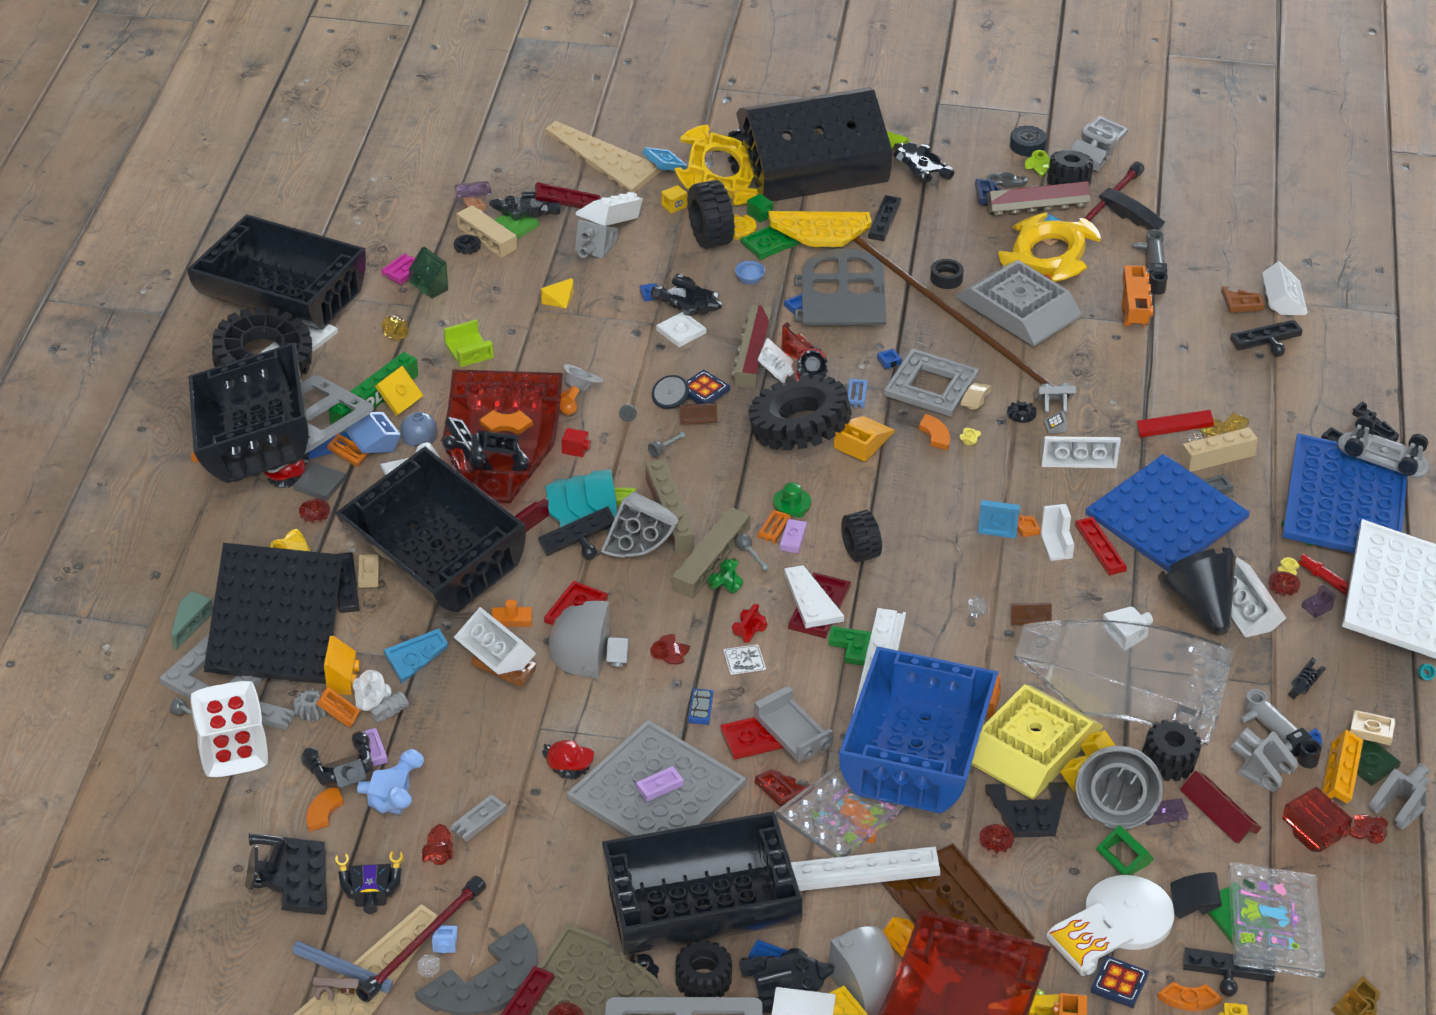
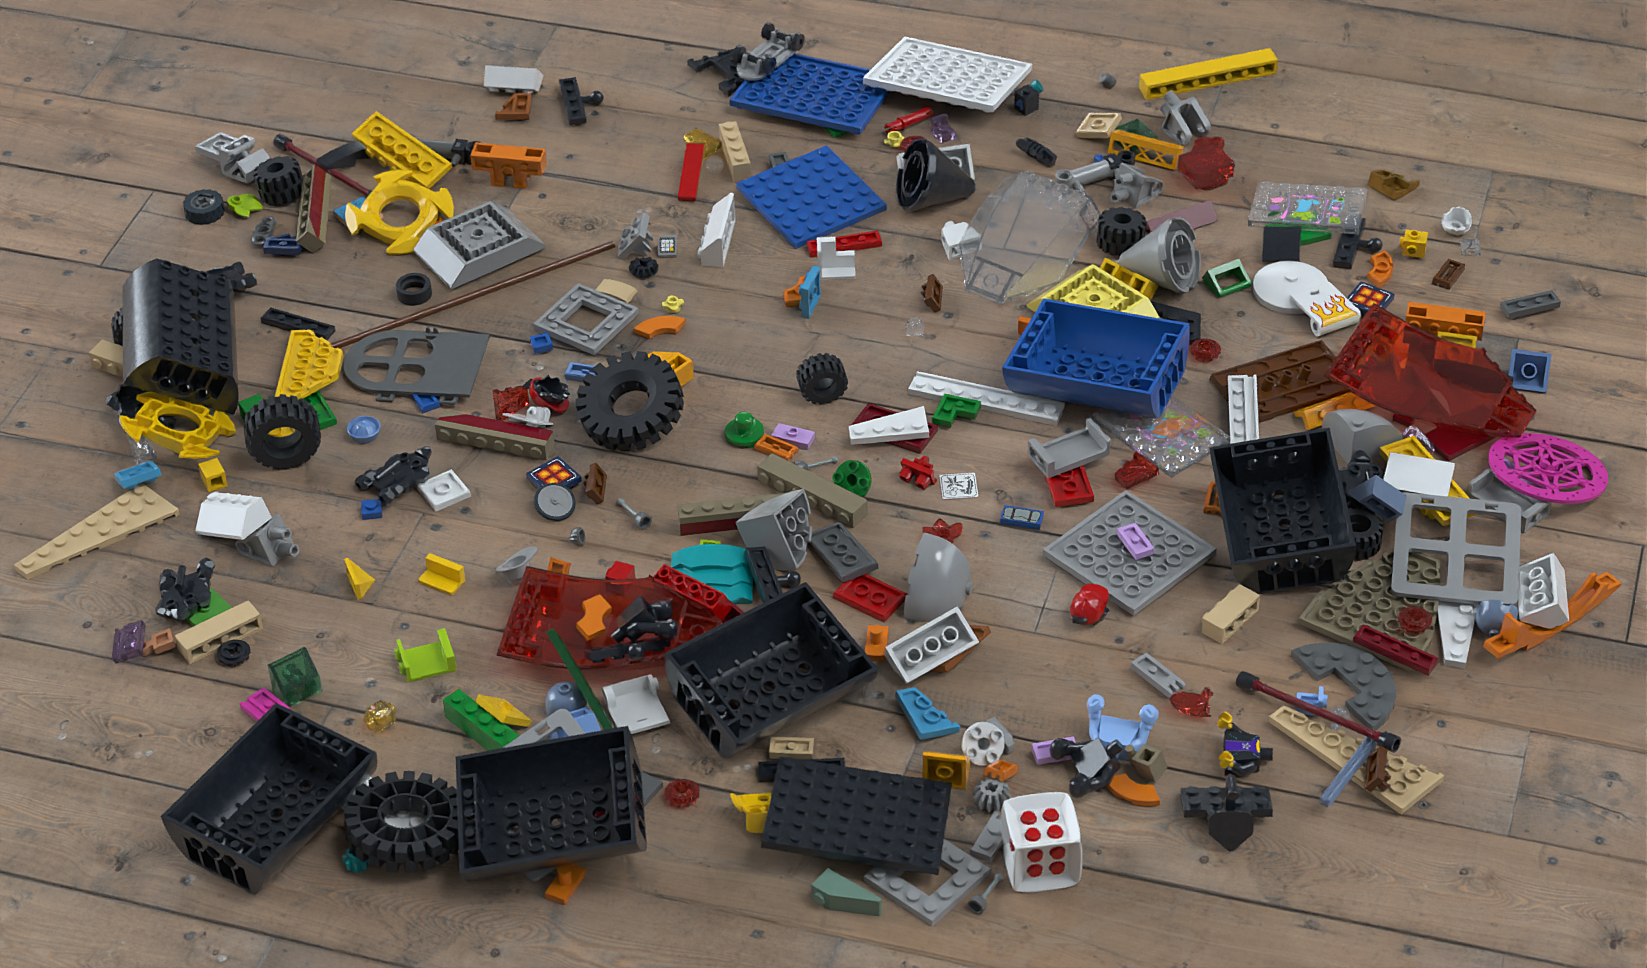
camera: 80 degrees left, 0 degrees up
(349, 809) = (1147, 761): none -> dark tan brick
(407, 432) = (580, 679): none -> dark green tile
(543, 478) = (699, 593): none -> red brick
(564, 196) = (189, 553): dark red tile -> none
(570, 341) = (442, 574): none -> yellow panel
(570, 870) = (1230, 614): none -> tan brick
(629, 580) = (842, 552): none -> dark grey tile
(736, 973) = (1380, 498): none -> sand blue slope
(1133, 232) = (401, 150): none -> yellow plate
(1393, 662) = (1026, 100): none -> black brick

